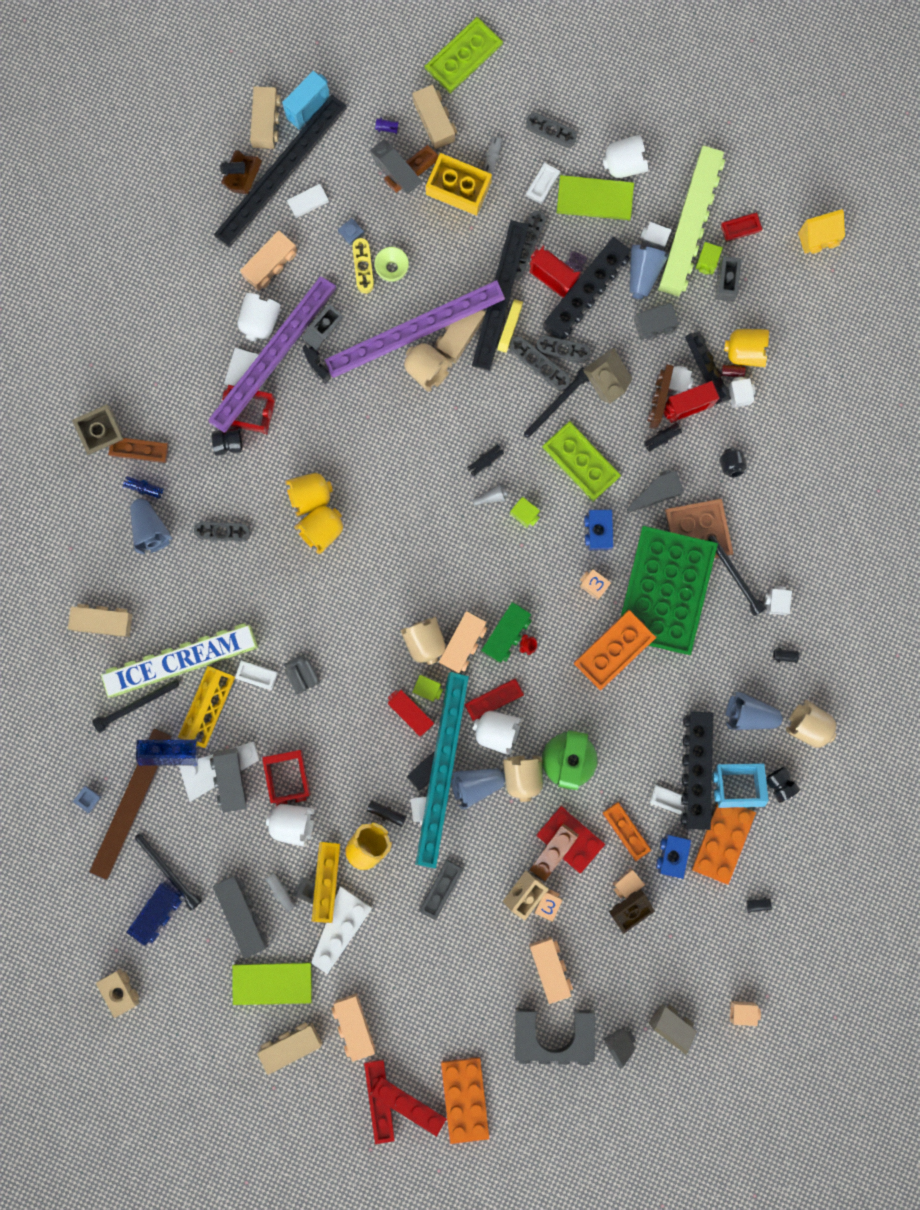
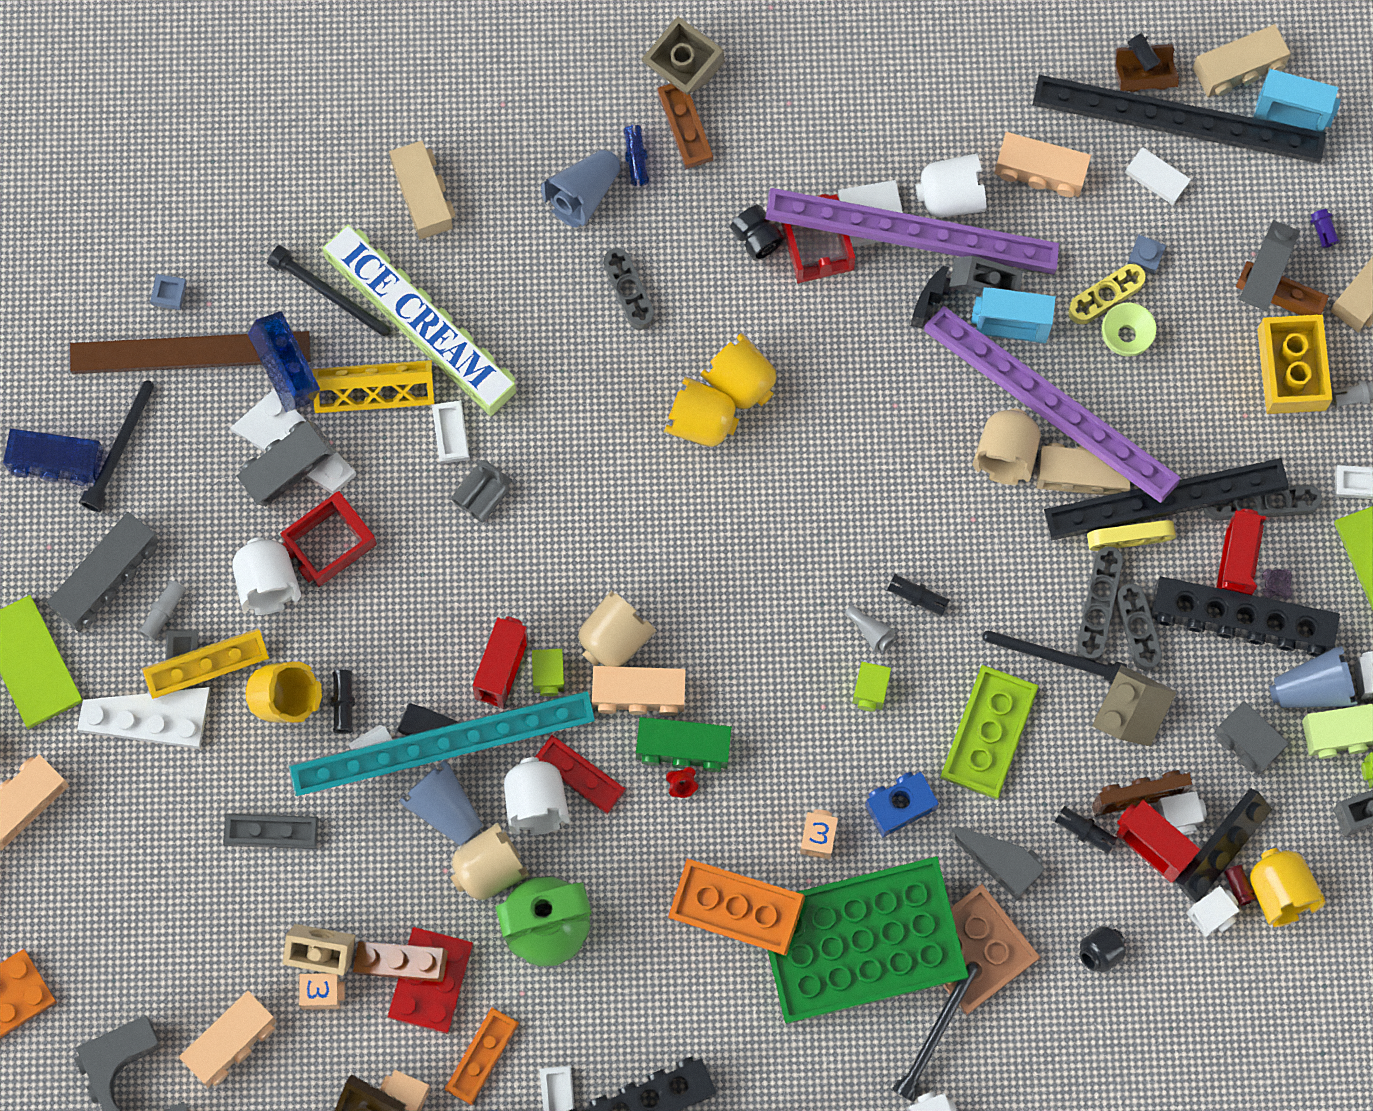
camera: 65 degrees right, 10 degrees down
(352, 322) = (1014, 314): none -> medium azure window

